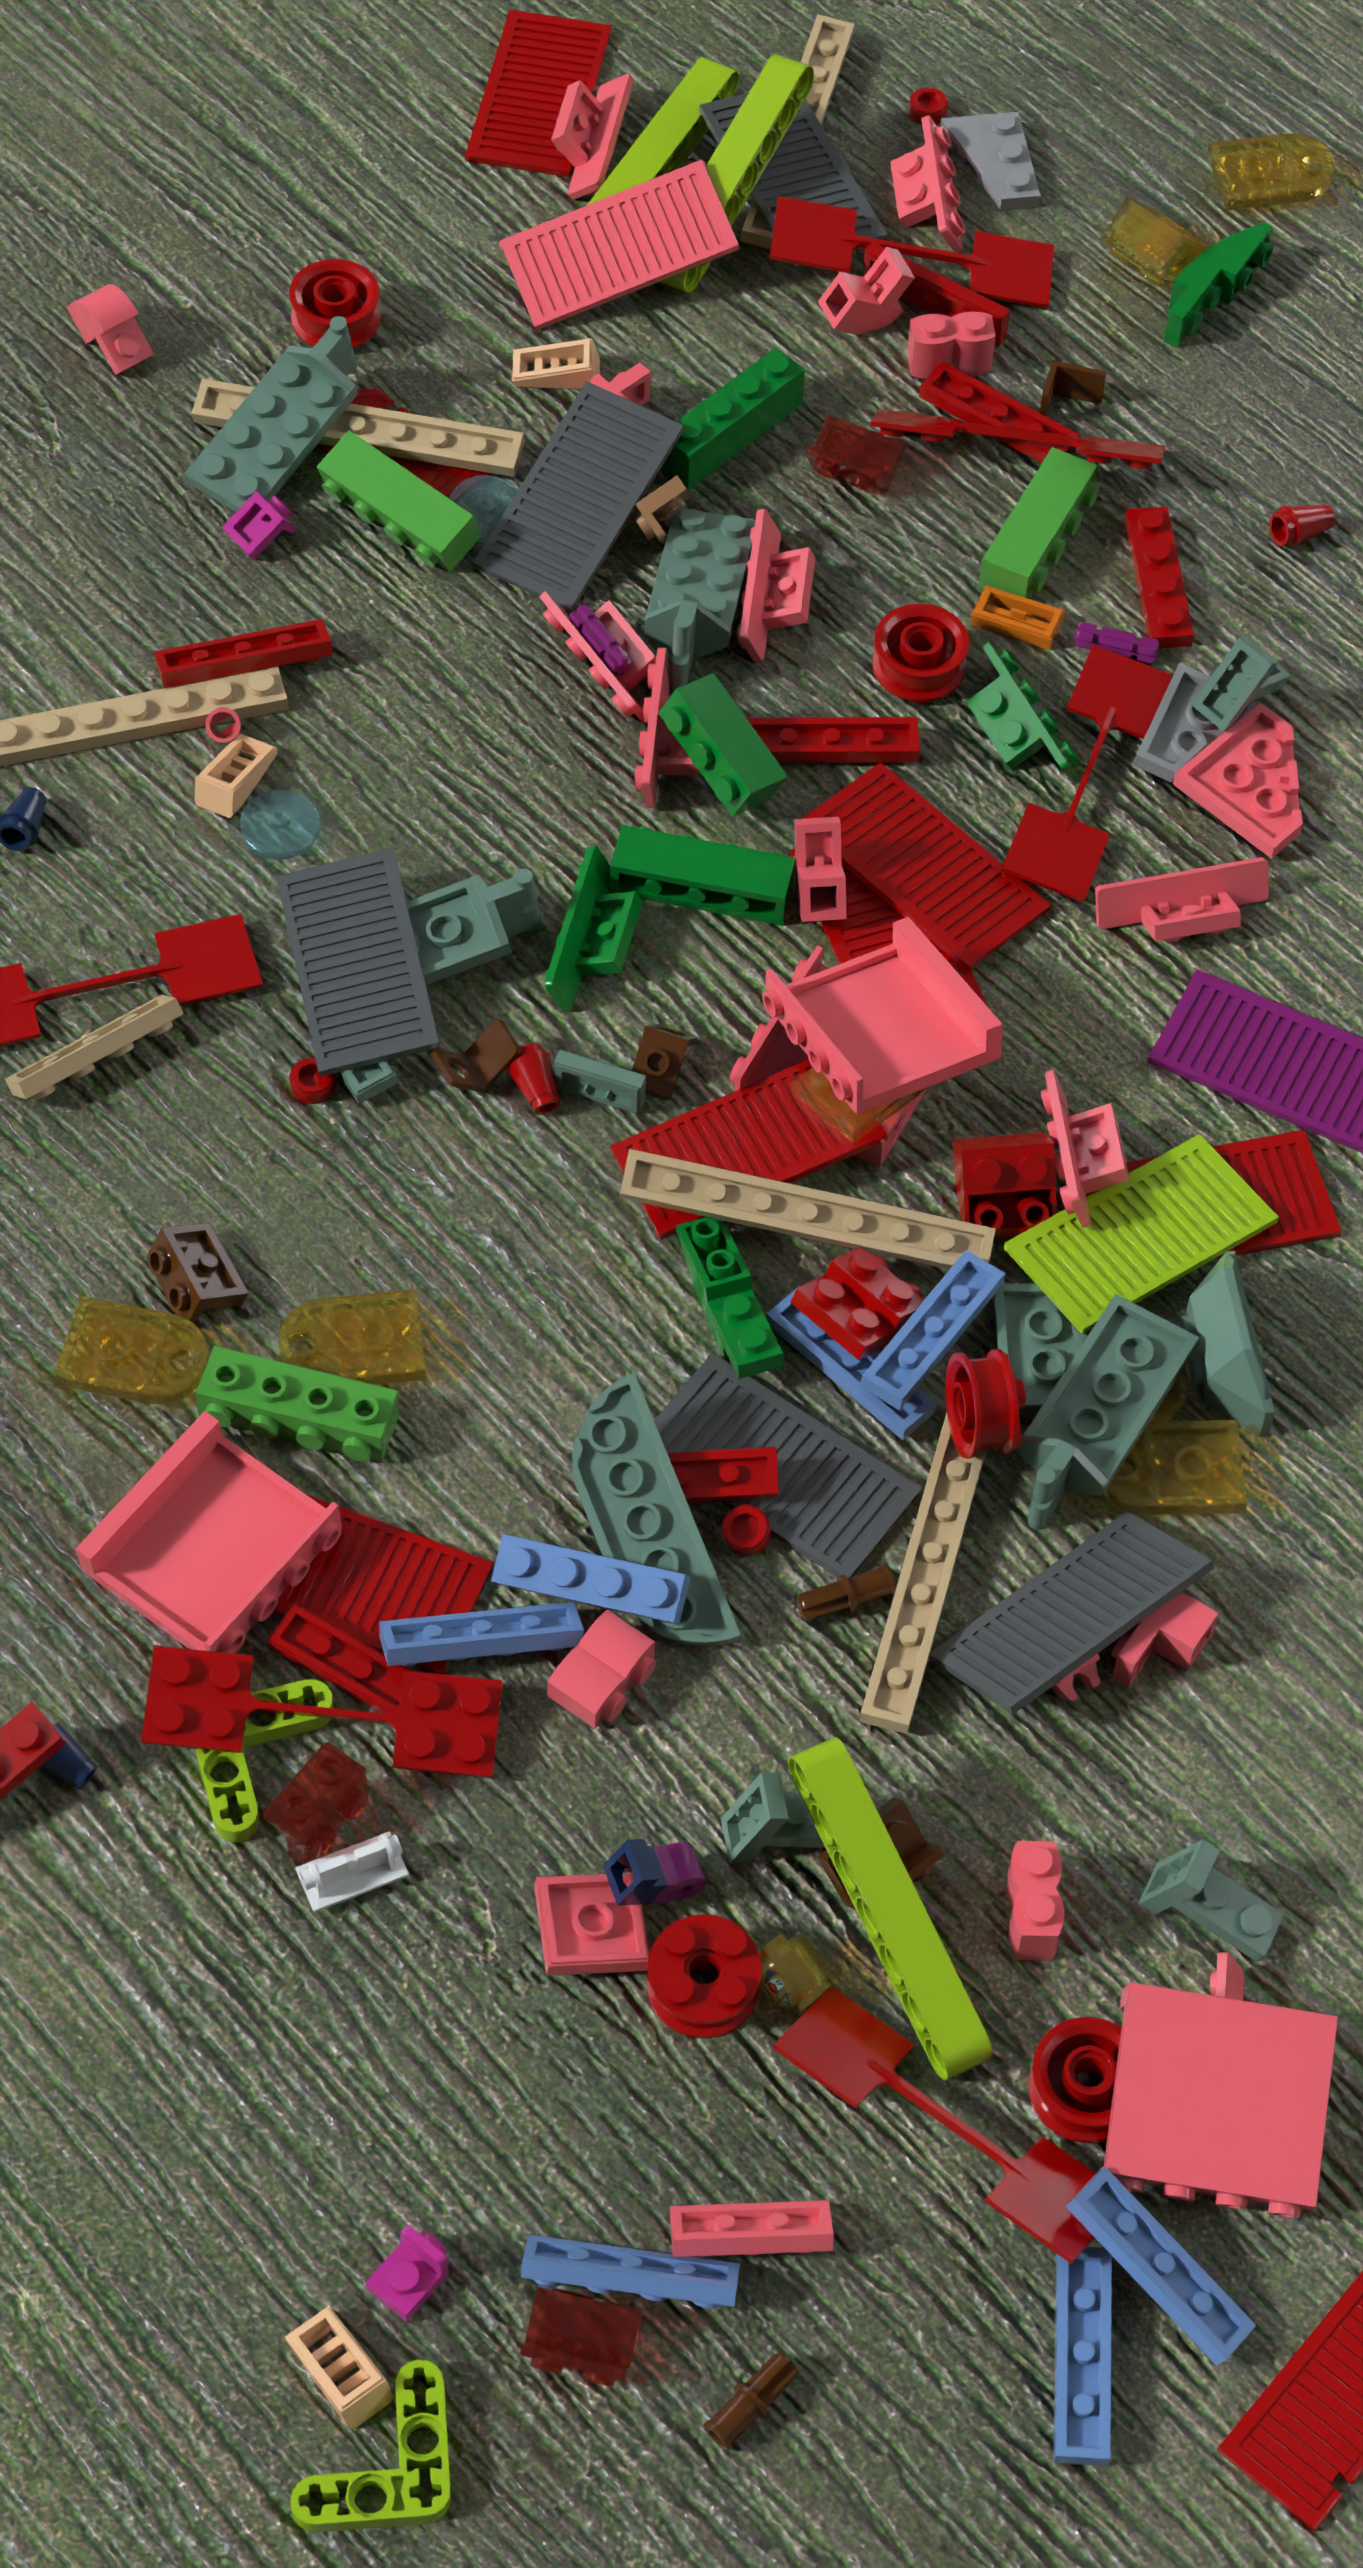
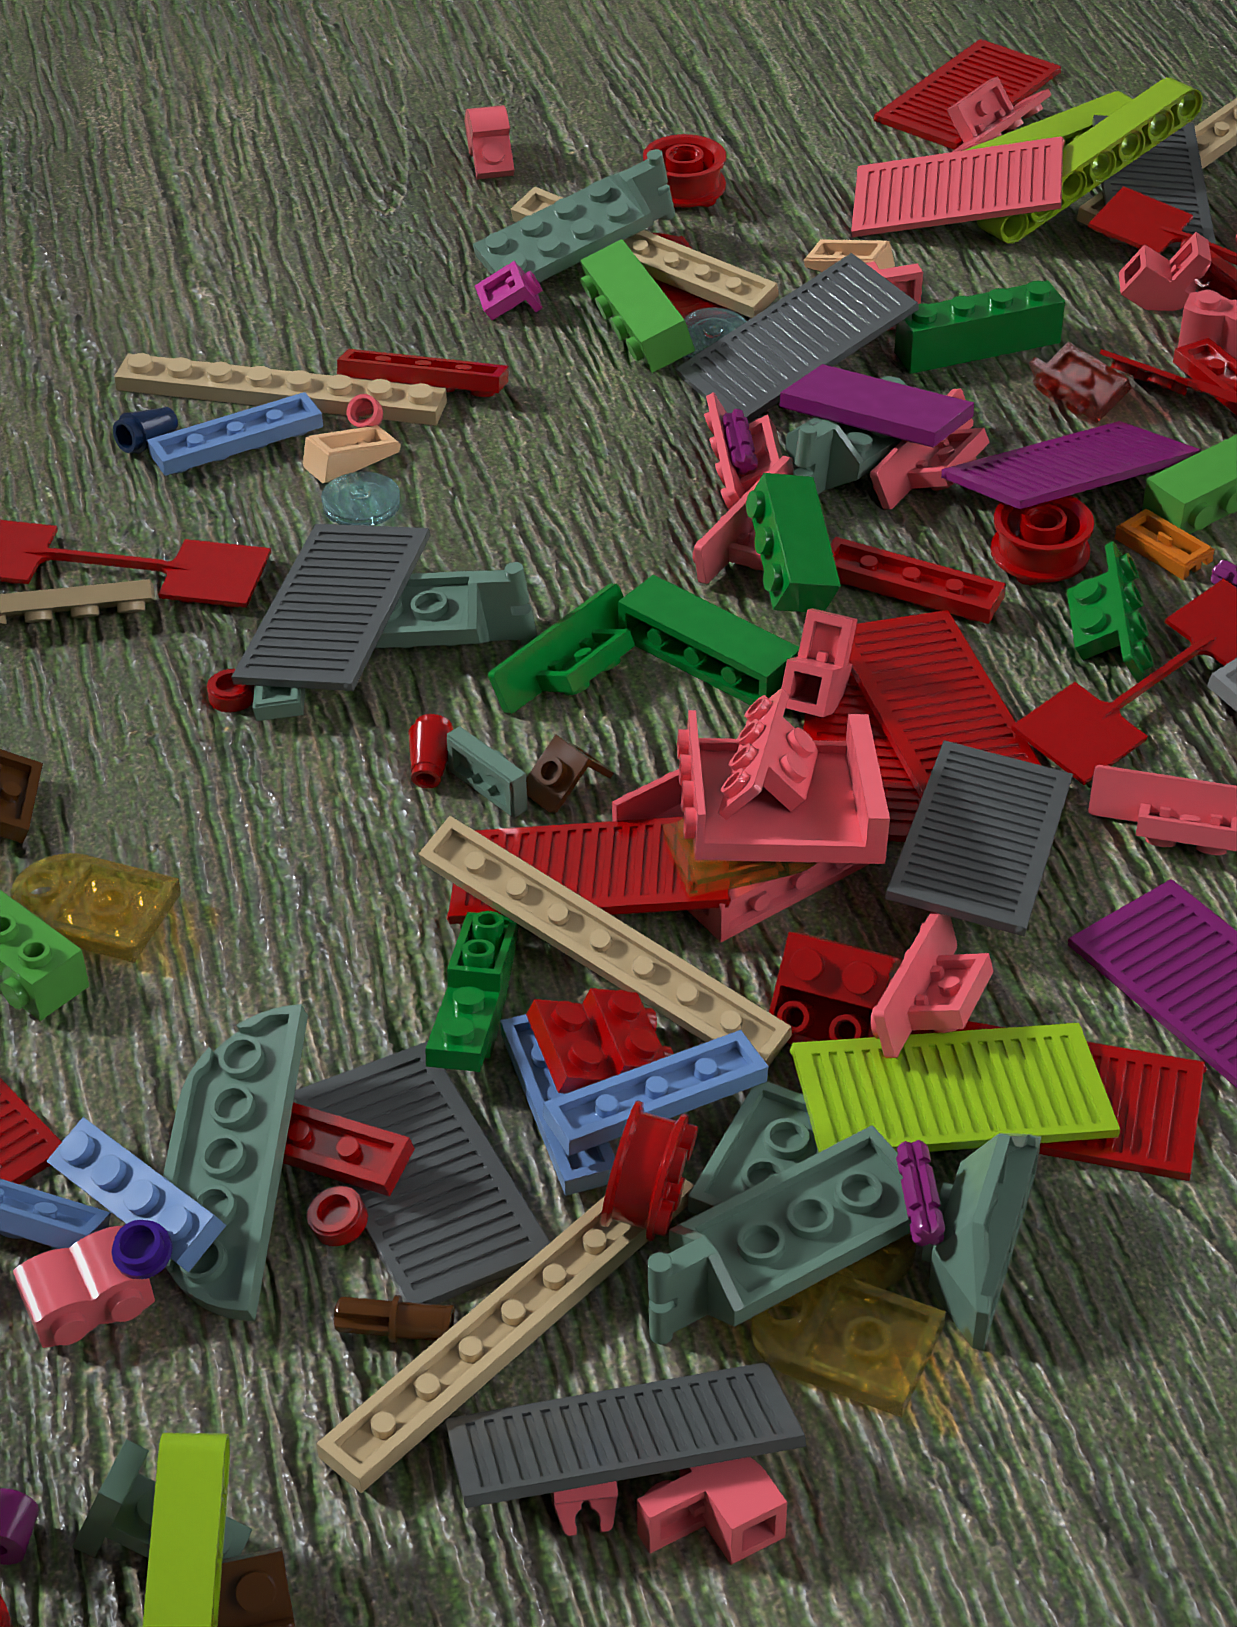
camera: 30 degrees right, 15 degrees down
(114, 793) = (235, 433): none -> medium blue plate
(482, 1060) = (385, 727): reddish brown bracket -> none
(646, 1624) = (141, 1249): none -> dark purple plate
(664, 502) = (870, 358): medium nougat bracket -> none
(708, 559) = (877, 405): none -> magenta tile
(856, 994) = (770, 757): none -> coral bracket
(905, 563) = (1069, 464): none -> magenta window
(1043, 990) = (981, 838): none -> dark grey window
(1185, 1338) = (920, 1193): none -> magenta axle

